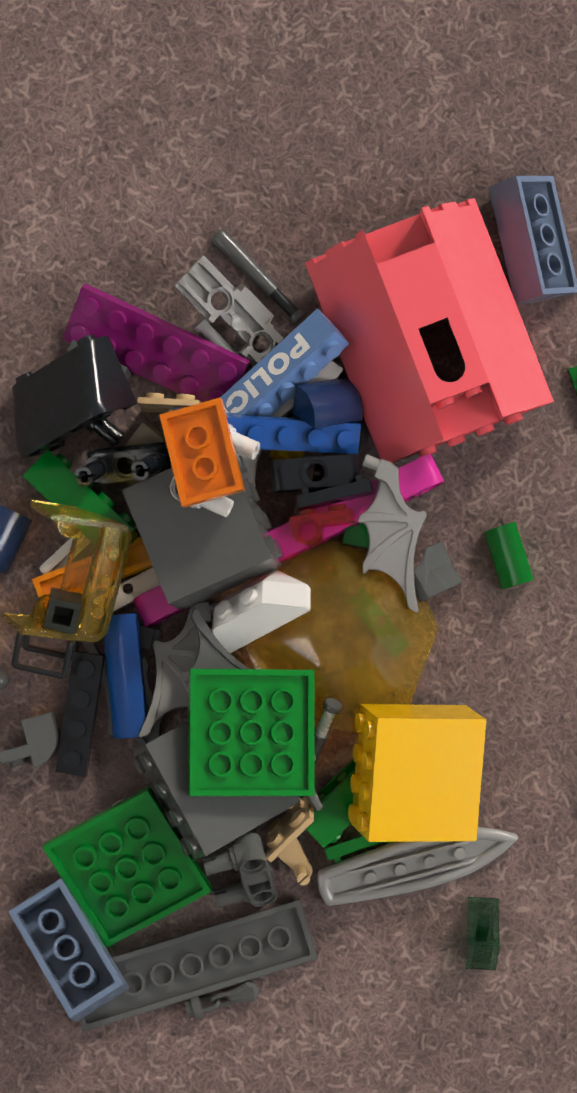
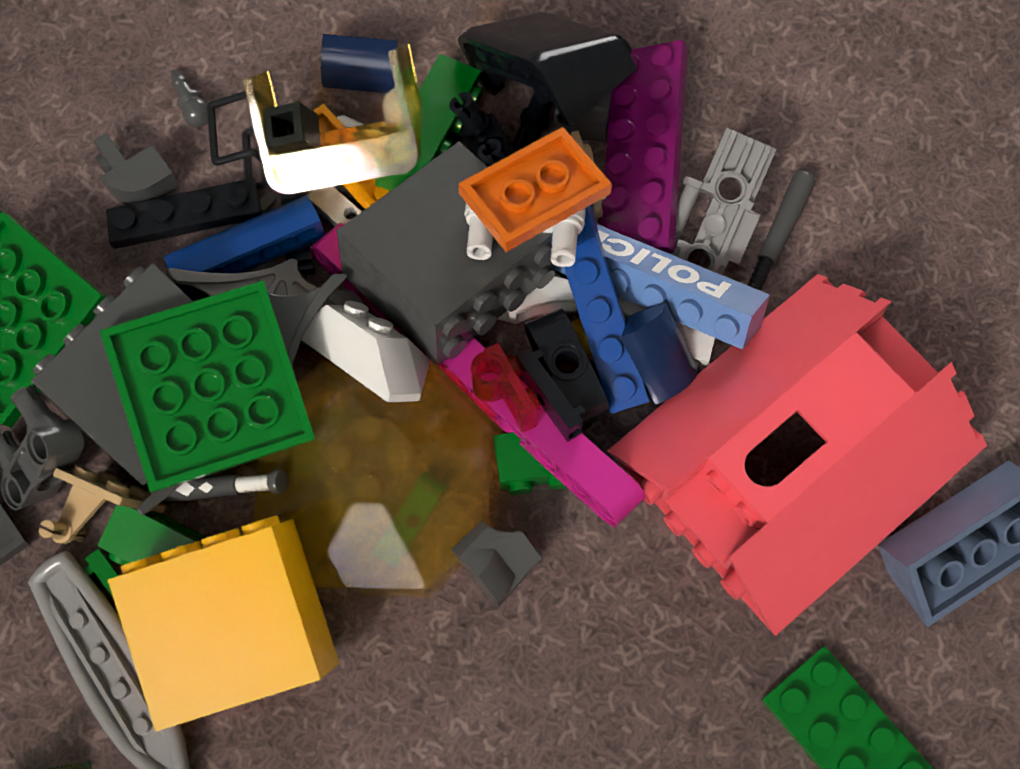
camera: 65 degrees right, 15 degrees down
(391, 530) = (529, 478): light grey animal -> none
(508, 555) = (554, 652): green brick -> none

